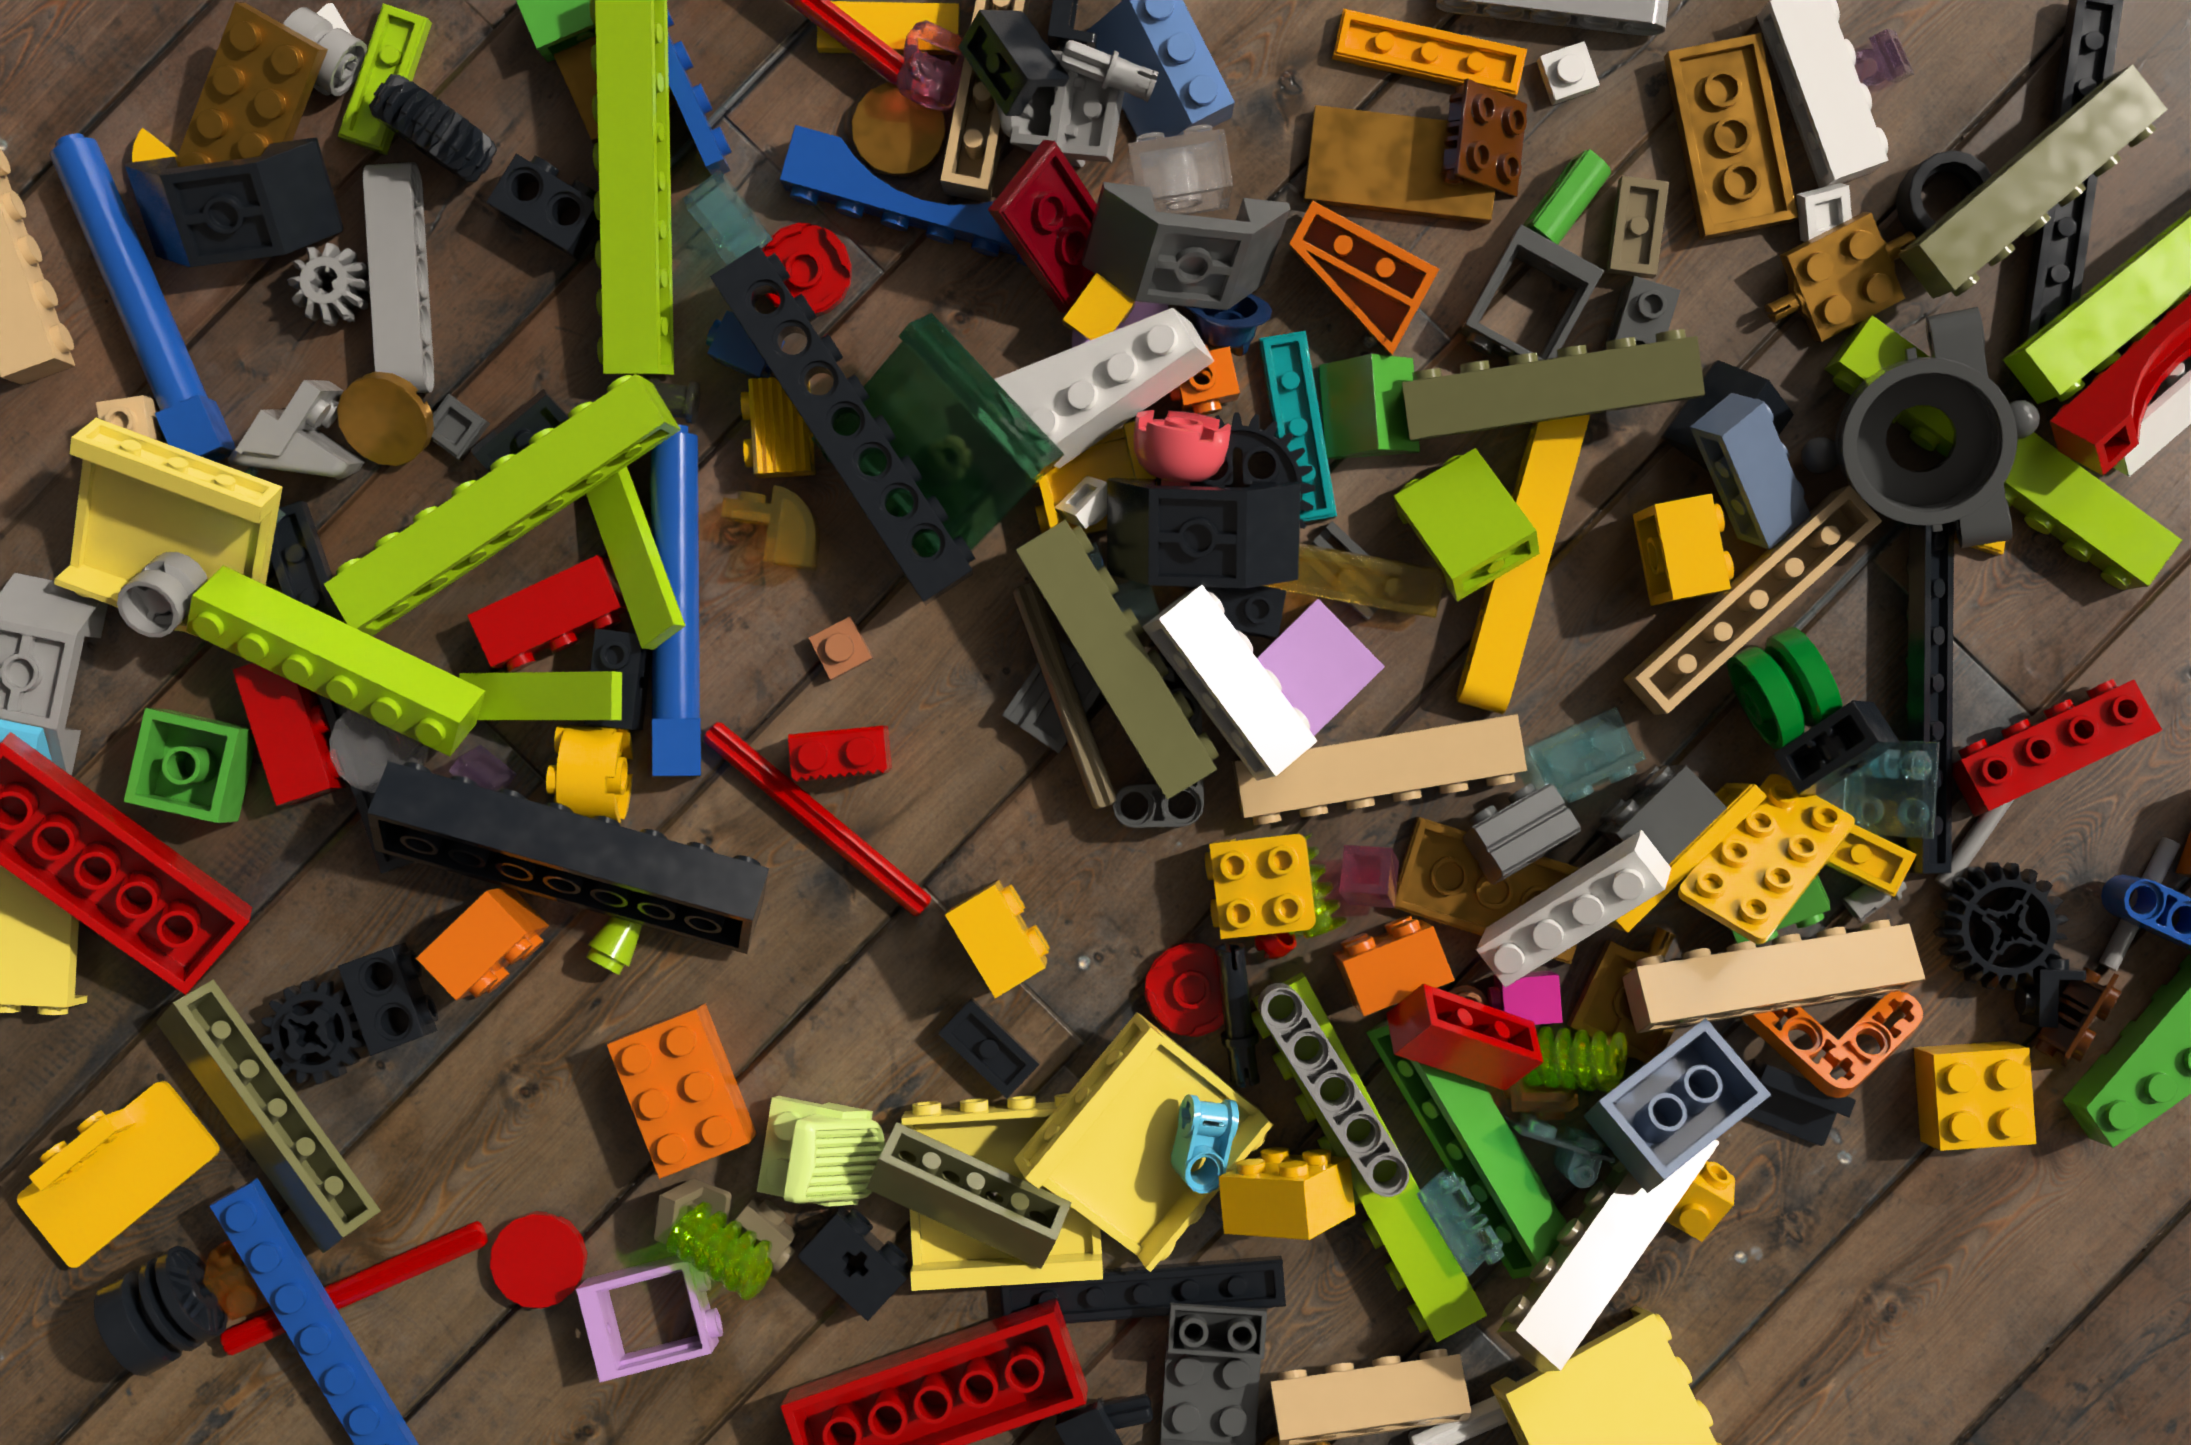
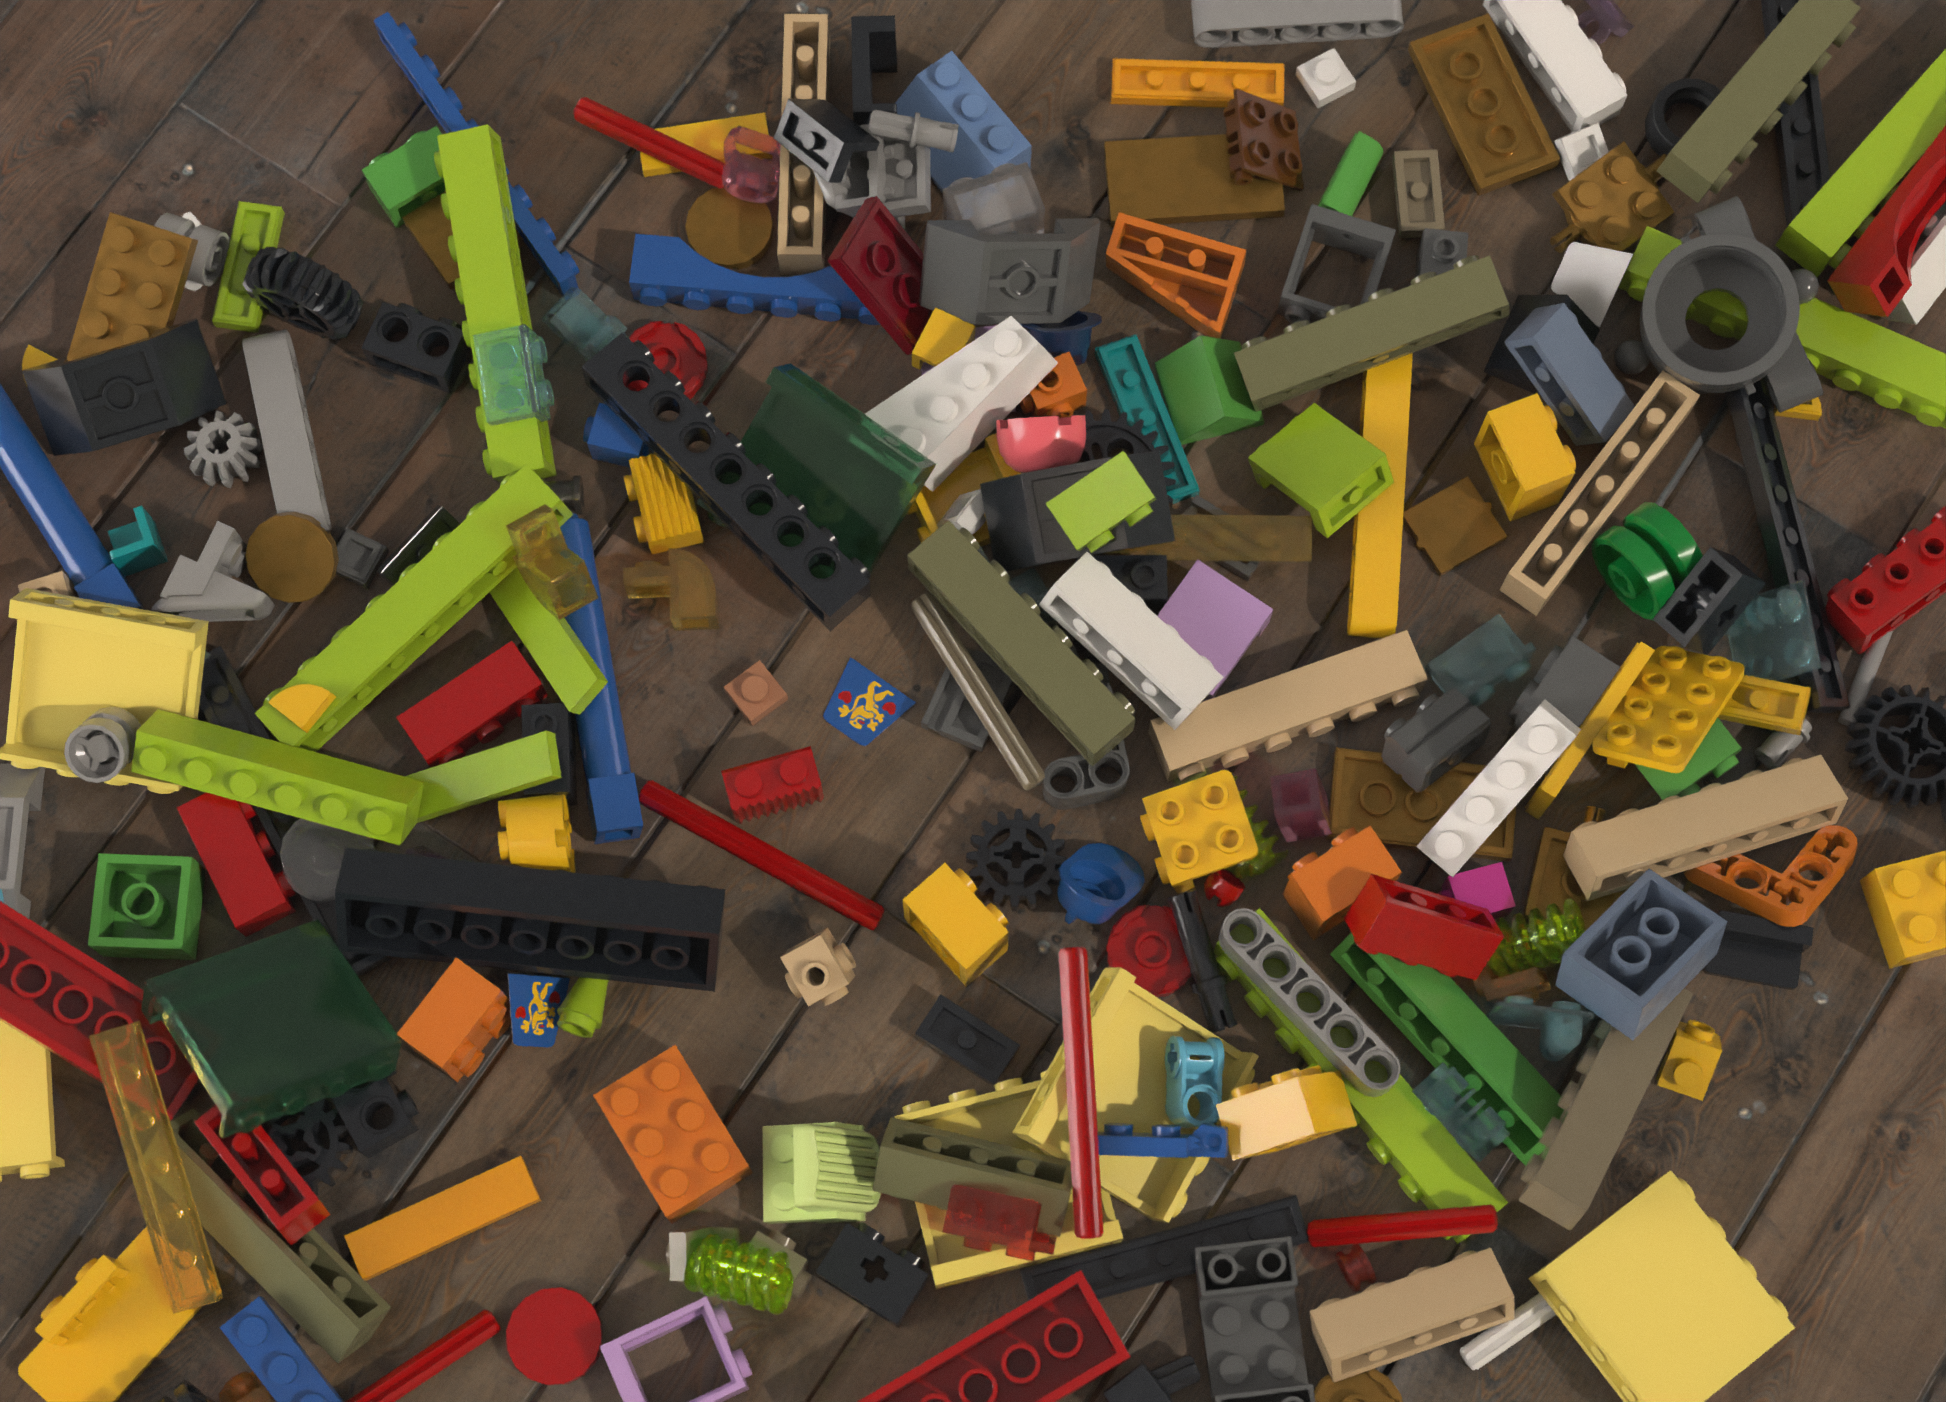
camera: 15 degrees left, 15 degrees down
(163, 1038) = (156, 1167): none -> clear yellow tile
(230, 371) = (137, 544): none -> teal panel
(265, 1065) = (266, 1177): none -> red brick
(293, 926) = (274, 1025): none -> clear green panel
(371, 589) = (303, 704): none -> yellow tile
(446, 1125) = (442, 1218): none -> light orange tile
(564, 939) = (535, 1007): none -> blue sticker
(638, 269) = (513, 375): none -> clear light blue bracket
(645, 489) = (548, 566): none -> clear yellow brick
(853, 951) = (821, 952): none -> tan brick
(950, 678) = (864, 704): none -> blue sticker
(980, 1254) = (998, 1219): none -> clear red bracket
(1067, 896) = (998, 859): none -> black gear
(1086, 1145) = (1081, 1092): none -> red axle
(1150, 915) = (1098, 882): none -> blue piece
(1154, 1202) = (1164, 1141): none -> blue hinge
(1227, 542) = (1102, 502): none -> lime brick
(1325, 1341) = (1355, 1267): none -> clear red bush
(1379, 1317) = (1402, 1226): none -> red axle
(1591, 601) = (1454, 526): none -> pearl gold piece
(1798, 359) = (1591, 277): none -> white sticker

